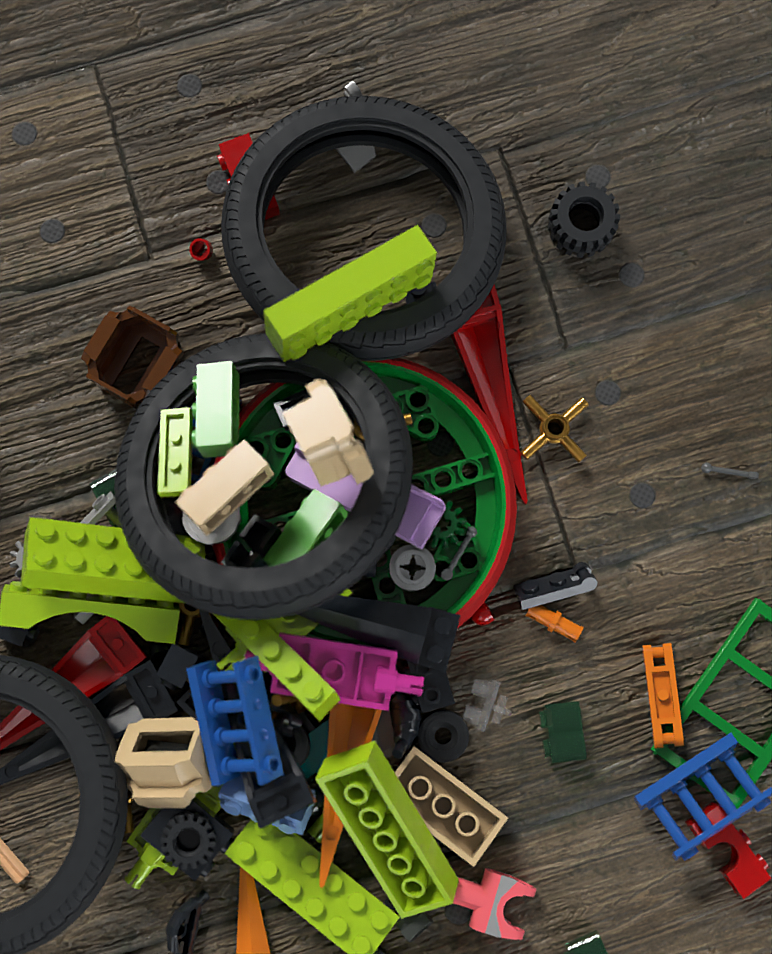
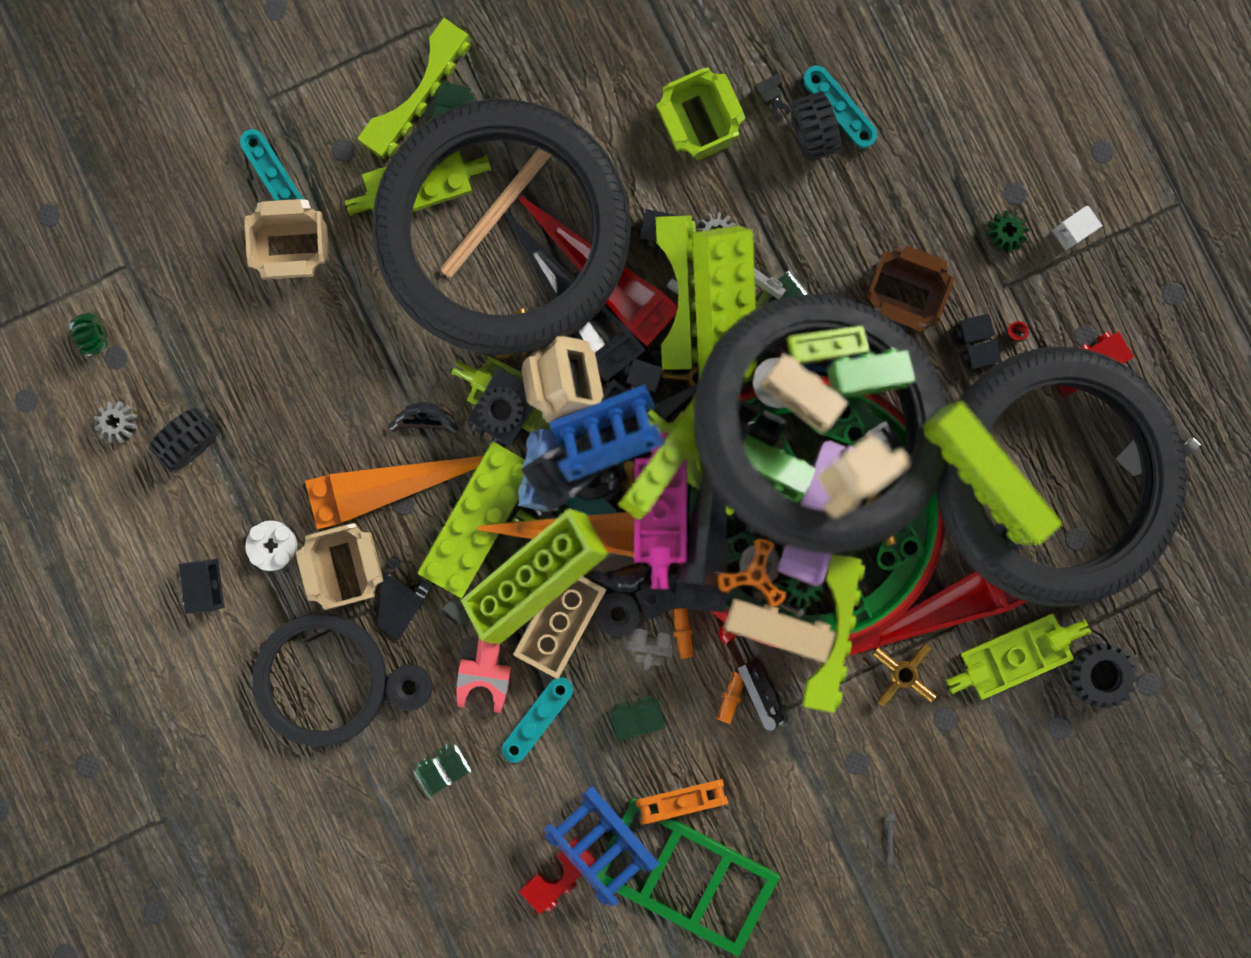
camera: 85 degrees right, 5 degrees up
(85, 237) = (1012, 224): none -> dark green gear
(99, 169) = (1076, 228): none -> white panel
(191, 294) = (974, 330): none -> black piece
(423, 574) = (755, 575): none -> orange piece
(475, 665) = (683, 633): none -> orange pin
(489, 557) = (780, 630): none -> tan brick
(549, 846) = (537, 719): none -> teal plate
(550, 305) = (1017, 656): none -> lime plate
(557, 517) = (823, 686): none -> lime arch

